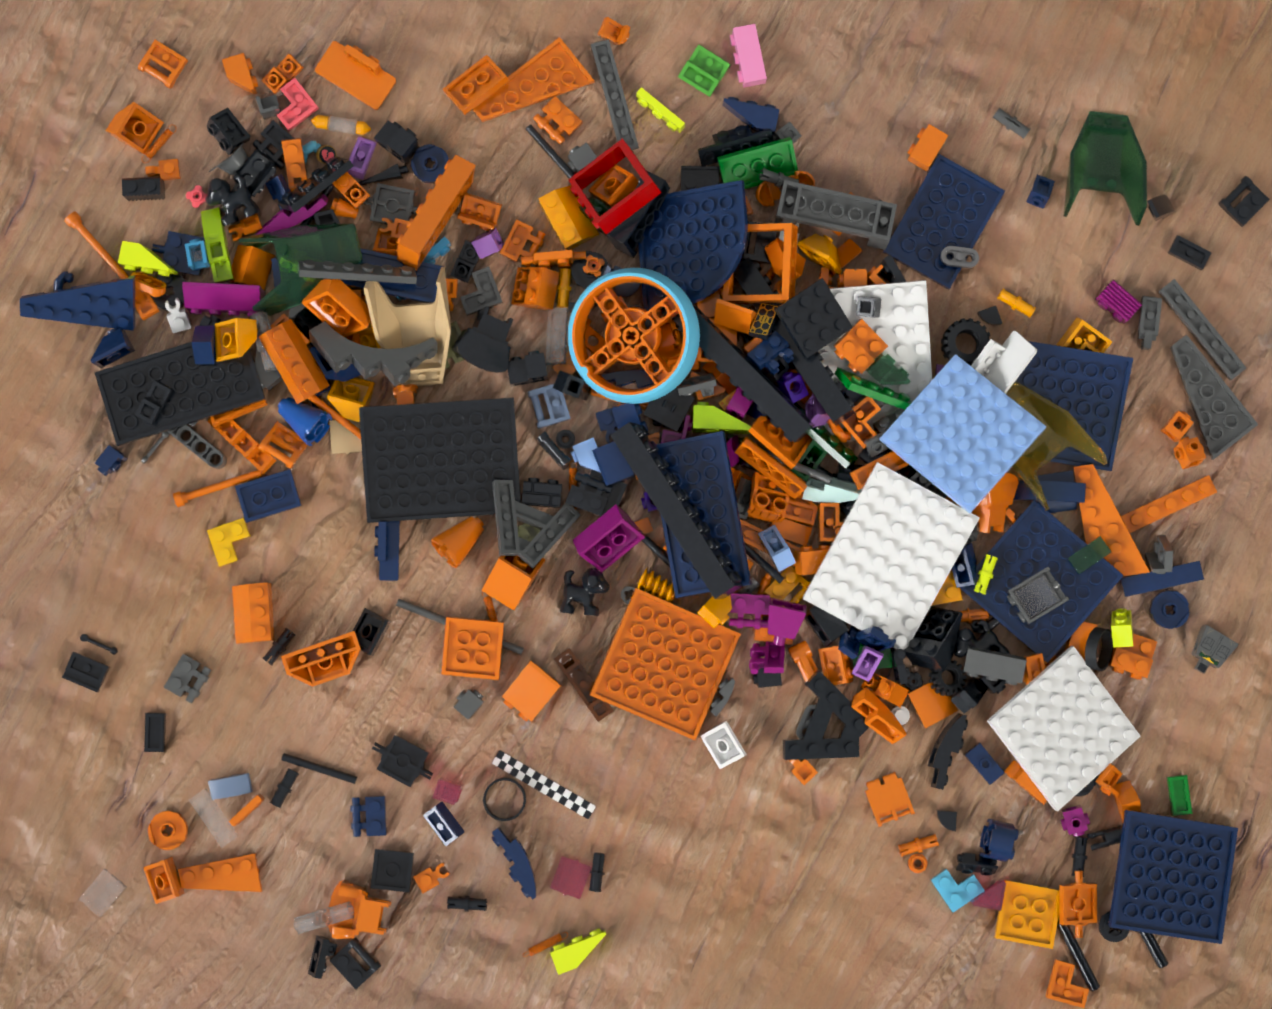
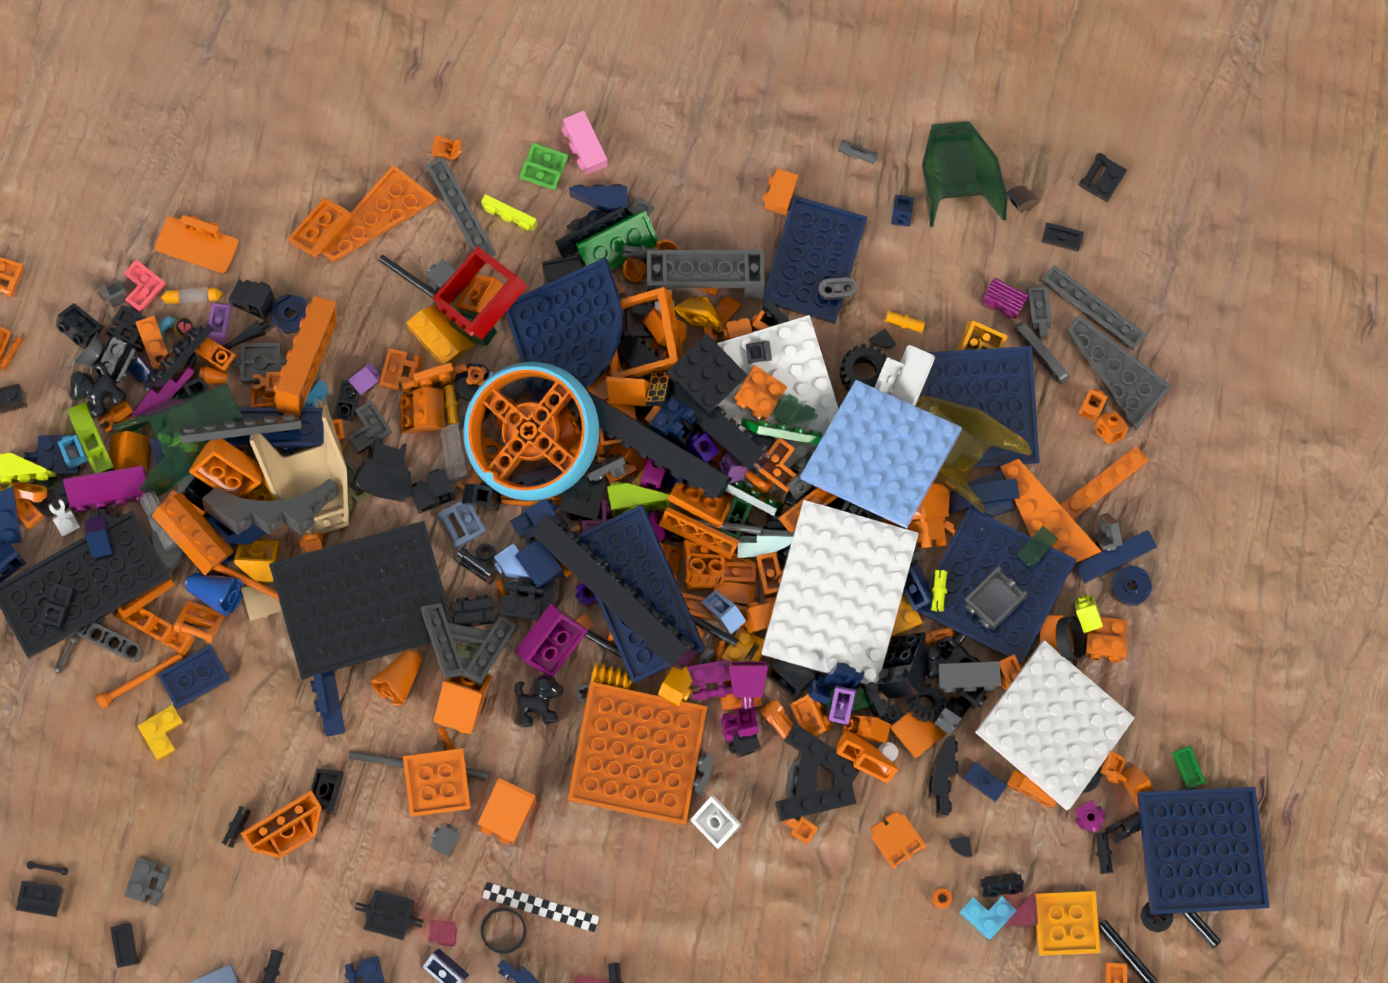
camera: 15 degrees left, 10 degrees down
(110, 460) = (22, 677): dark blue brick -> none
(166, 170) = (25, 376): orange plate -> none
(196, 202) = (60, 402): coral plate -> none
(234, 338) = (127, 521): light orange slope -> none
(239, 72) = (78, 266): orange slope -> none
(253, 613) = (202, 798): orange slope -> none
(282, 74) = (122, 260): orange slope -> none
(319, 768) = (304, 943): black bar -> none
(479, 212) = (350, 348): orange bracket -> none
(562, 116) = (413, 241): orange plate -> none
(582, 683) = (557, 793): reddish brown slope -> none
(631, 231) = (505, 333): black wedge -> none
(743, 496) = (677, 566): dark grey plate -> none
(918, 845) = (938, 879): orange pin -> none
(998, 840) = (1017, 853): dark blue brick -> none
(1078, 904) = (1114, 900): orange plate -> none
(1140, 363) = (1040, 351): none -> dark grey beam
(1212, 649) = (1183, 614): dark grey torso -> none

